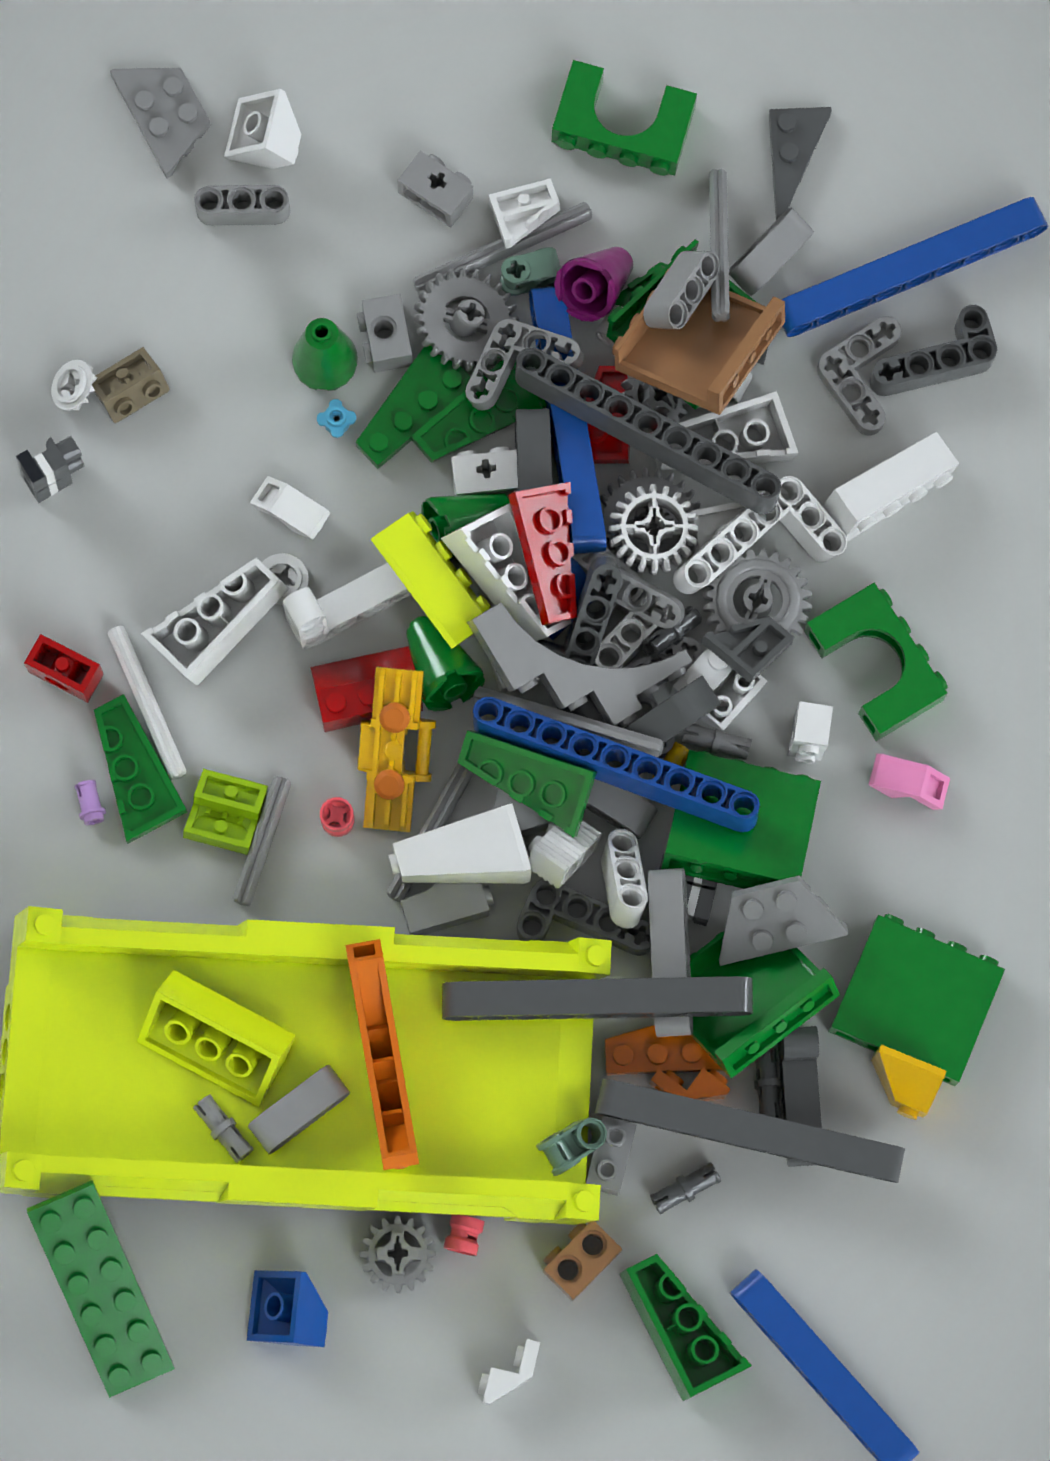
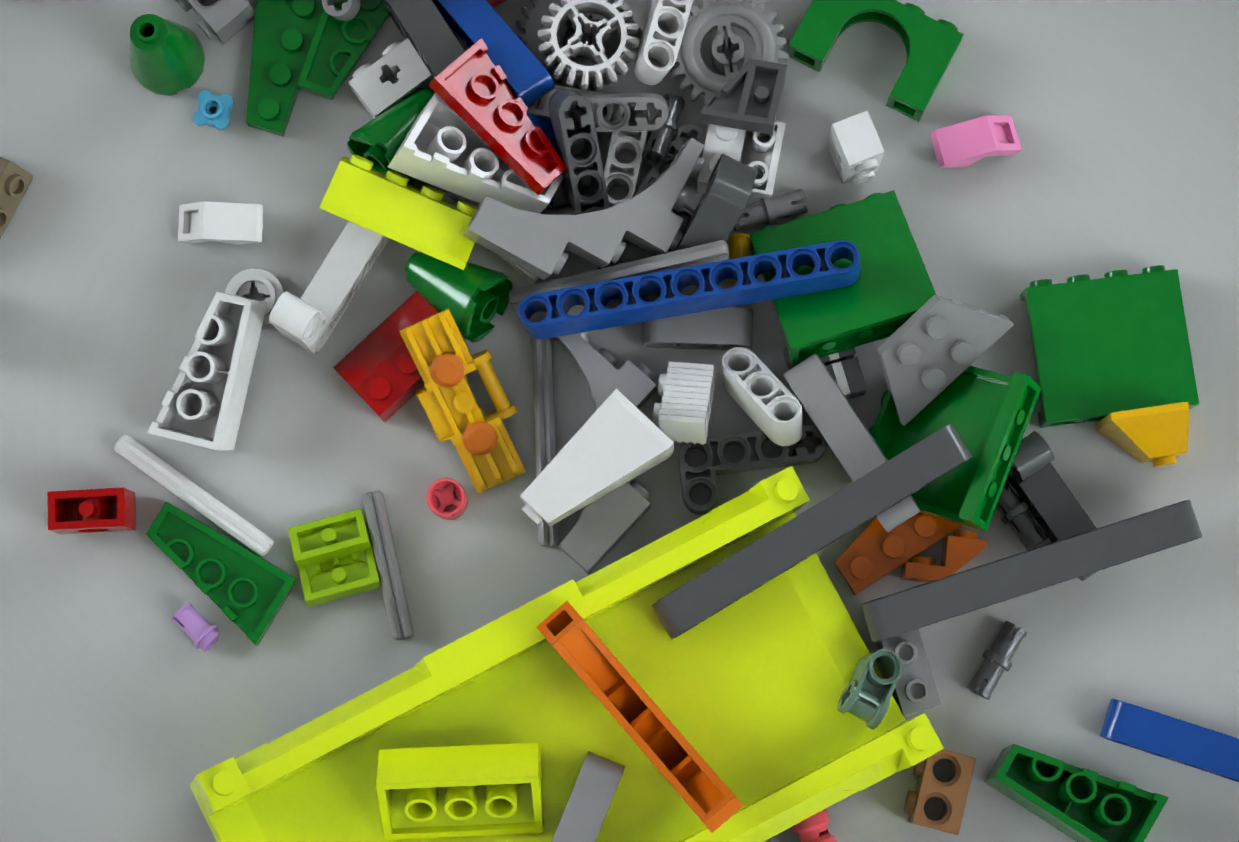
camera: 20 degrees left, 5 degrees up
(539, 781) = (628, 349): green wing -> none

